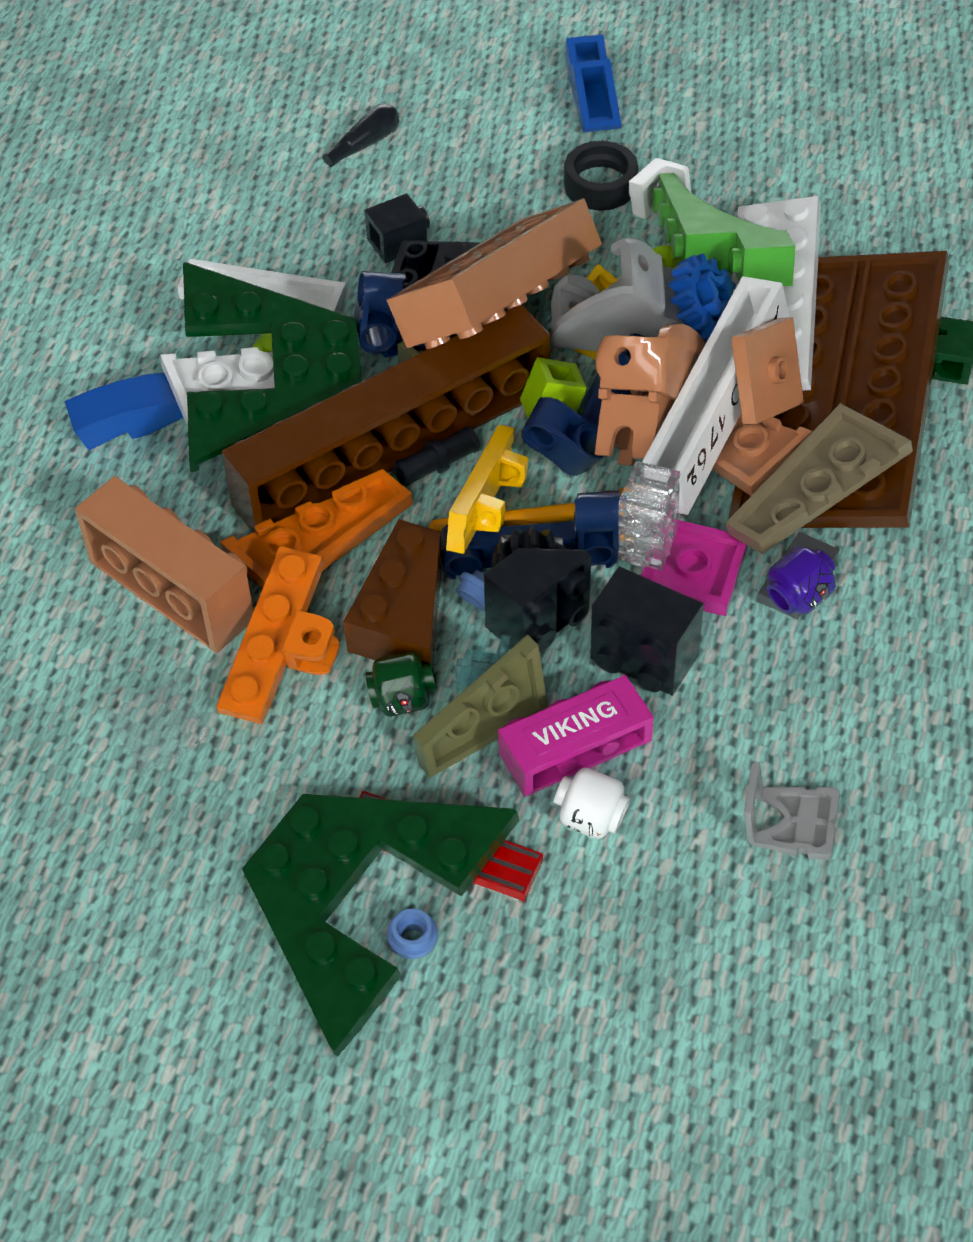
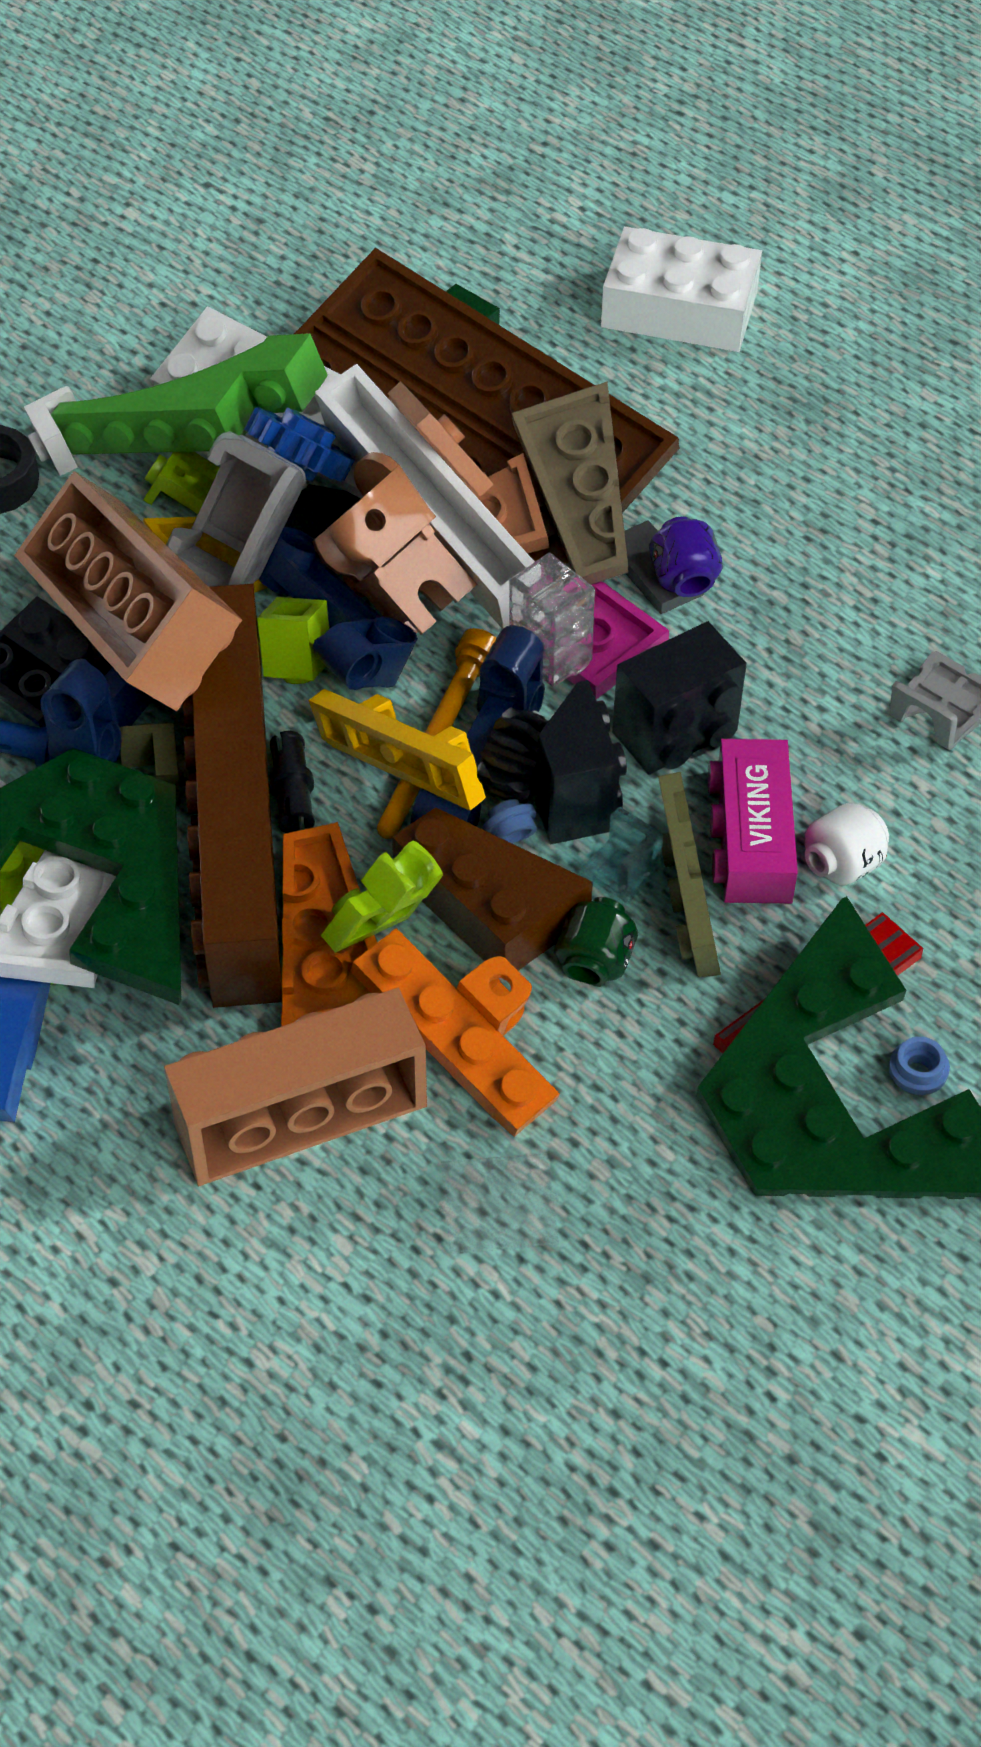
camera: 65 degrees left, 0 degrees up
(336, 535) = (392, 896): none -> lime plate

